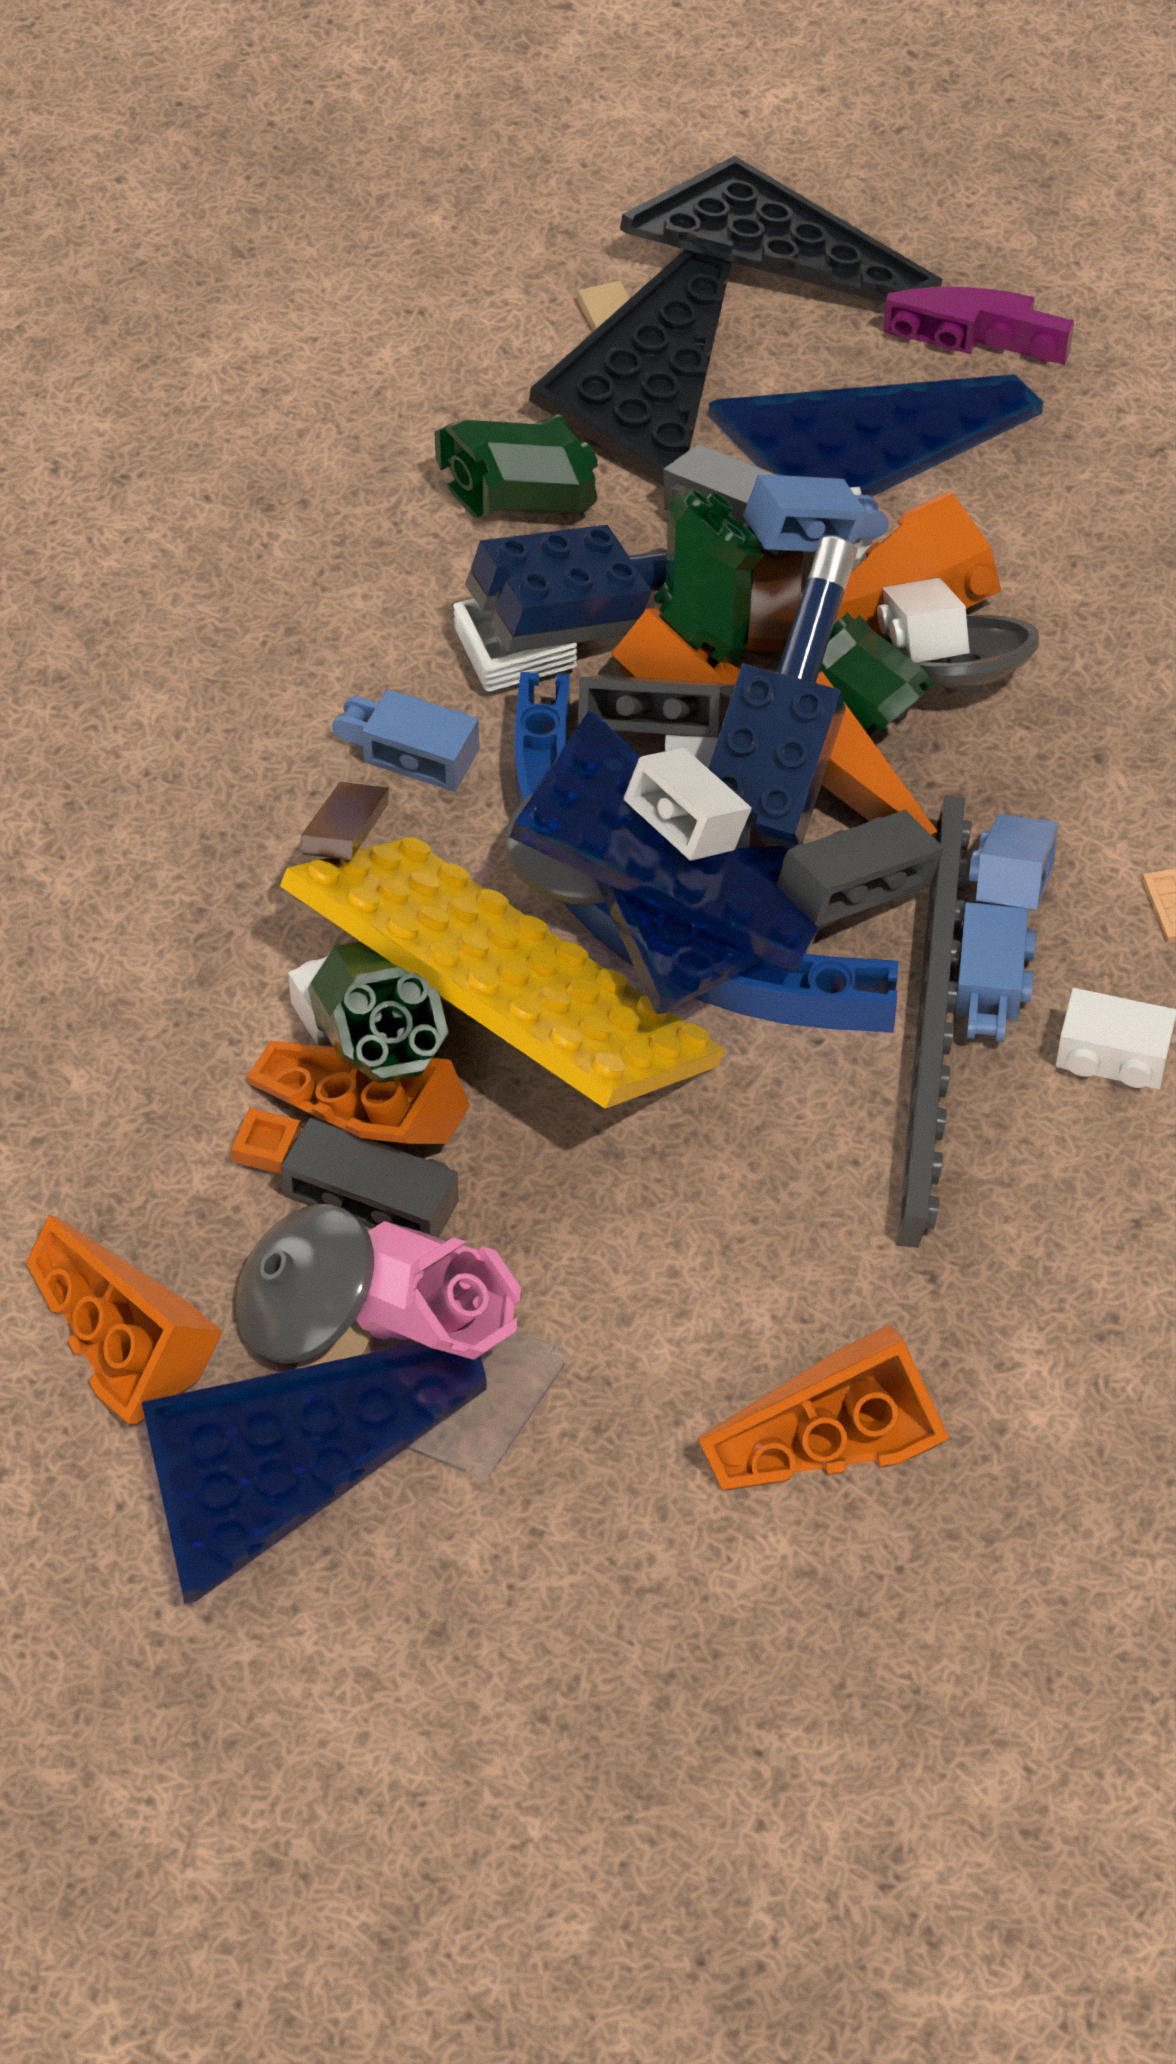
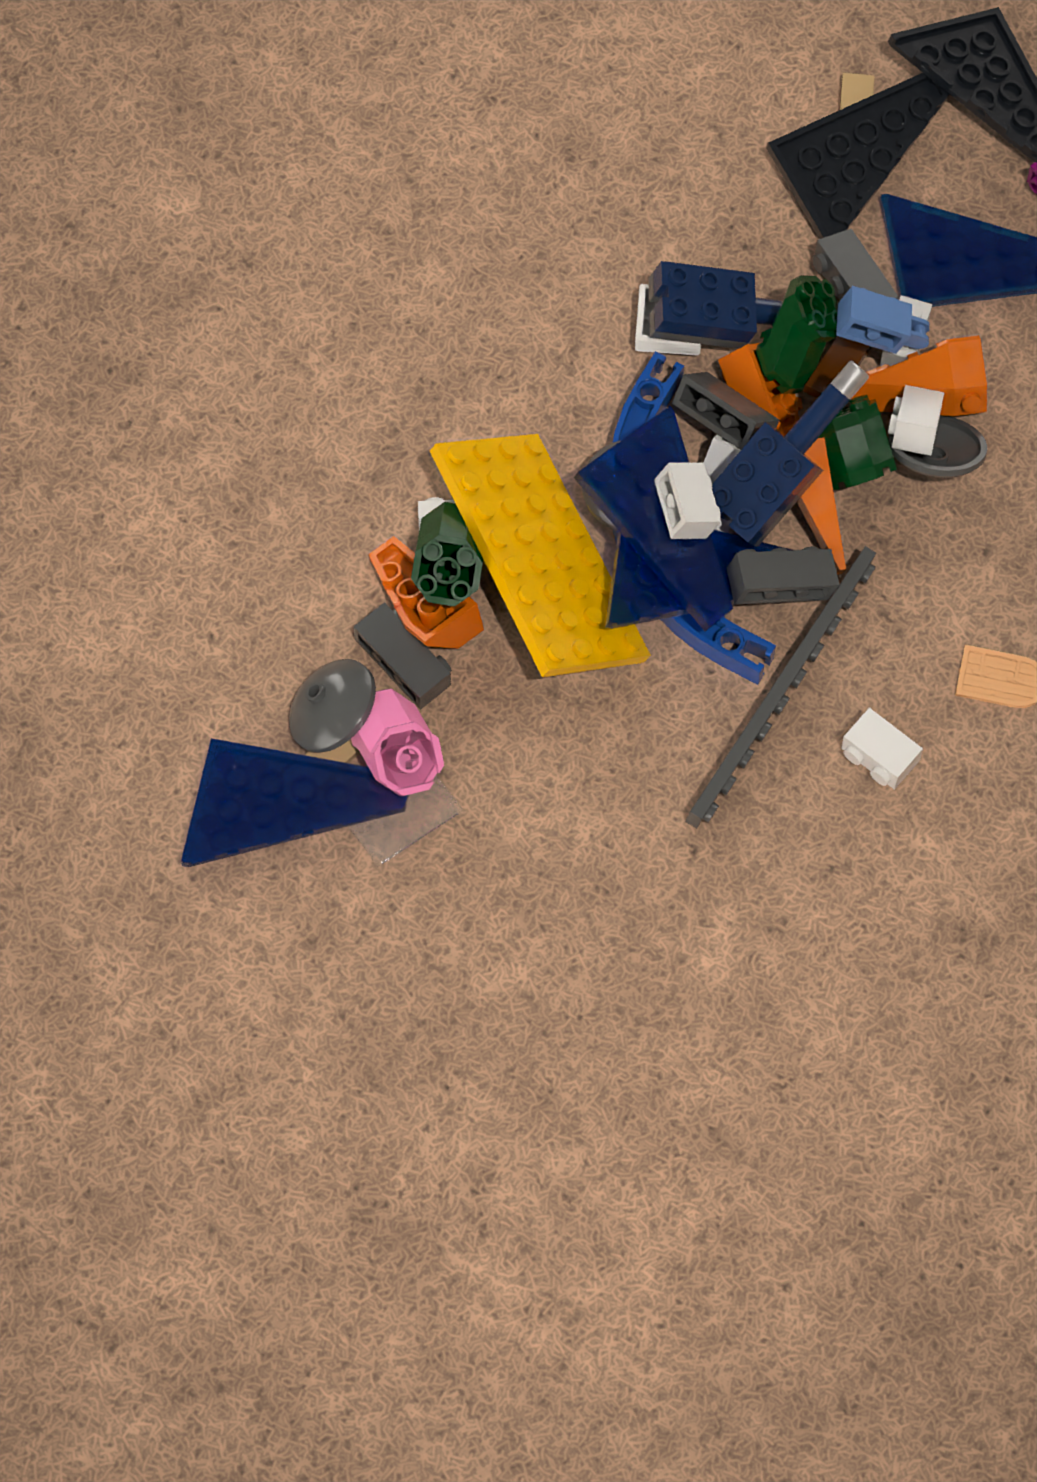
camera: 25 degrees right, 15 degrees up
(128, 1325) = (231, 691): orange wedge -> none
(265, 1140) = (357, 601): orange plate -> none
(344, 820) = (497, 414): reddish brown tile -> none
(411, 737) = (573, 366): medium blue brick -> none
(517, 466) = (729, 200): dark green brick -> none
(837, 1413) = (592, 911): orange wedge -> none
(992, 967) = (834, 671): medium blue brick -> none
(1014, 861) = (884, 607): medium blue brick -> none

